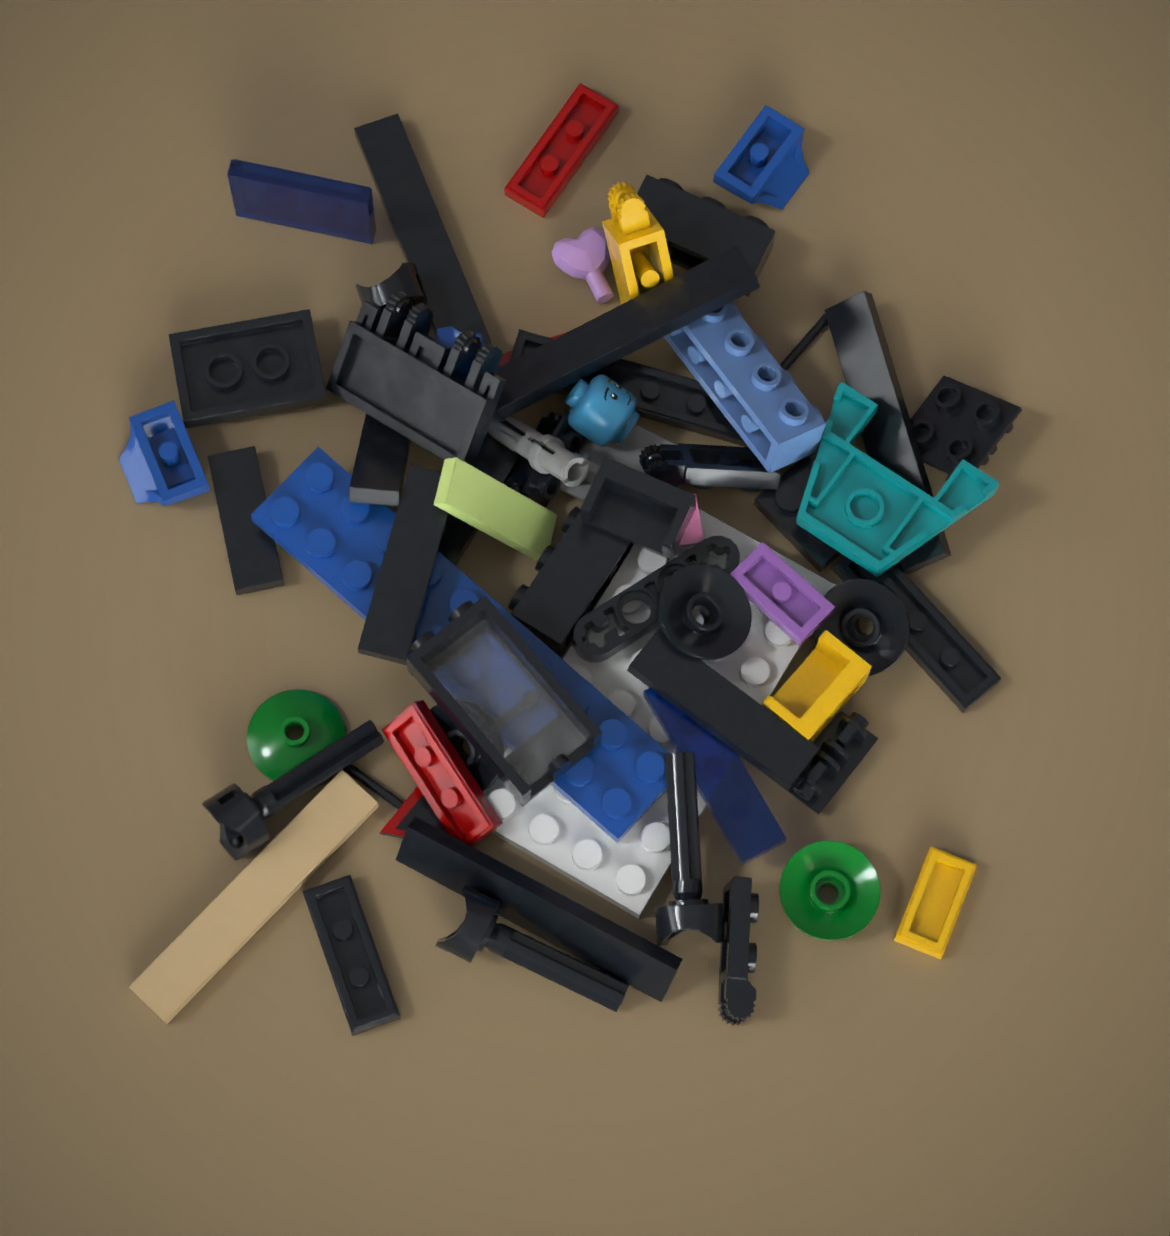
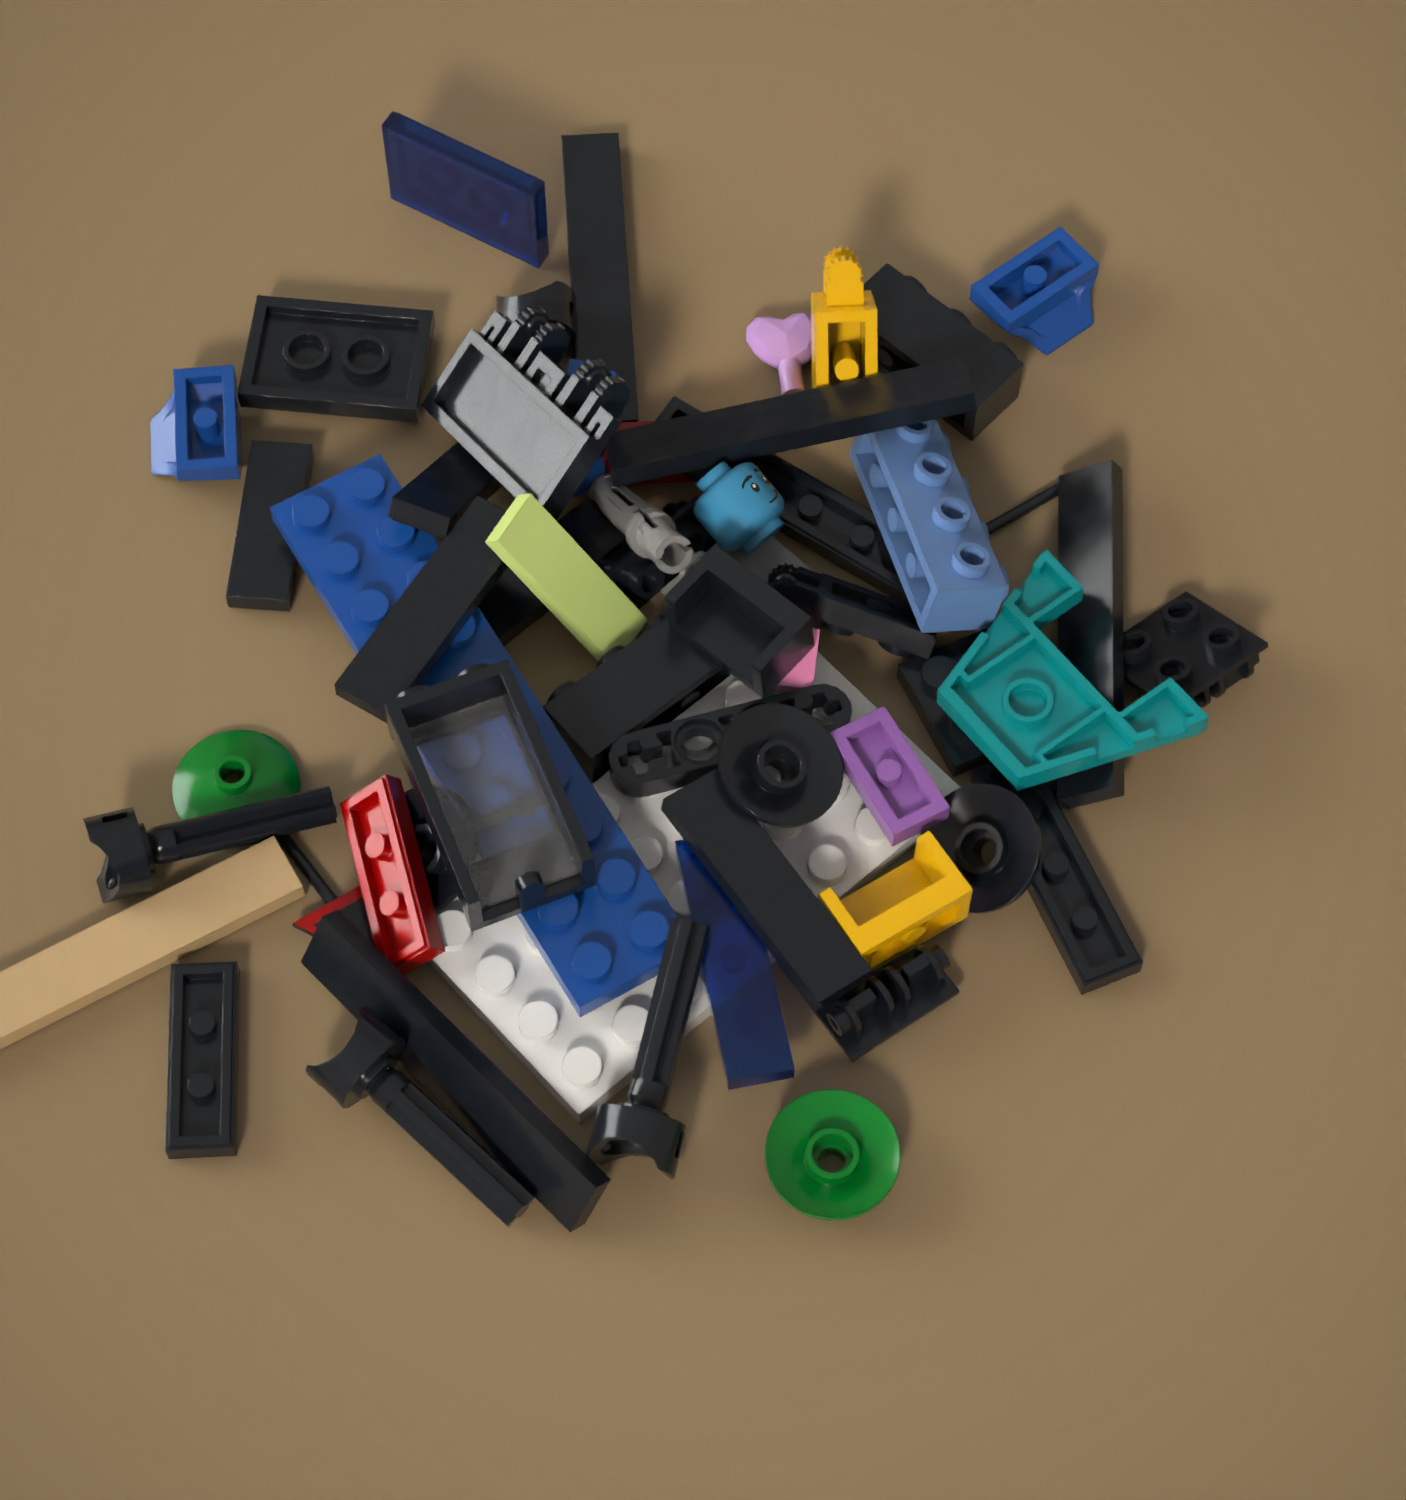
camera: 20 degrees right, 10 degrees down
(561, 150) = (799, 222): red tile -> none
(737, 954) = (687, 1198): black hinge -> none
(935, 902) = (968, 1214): yellow tile -> none

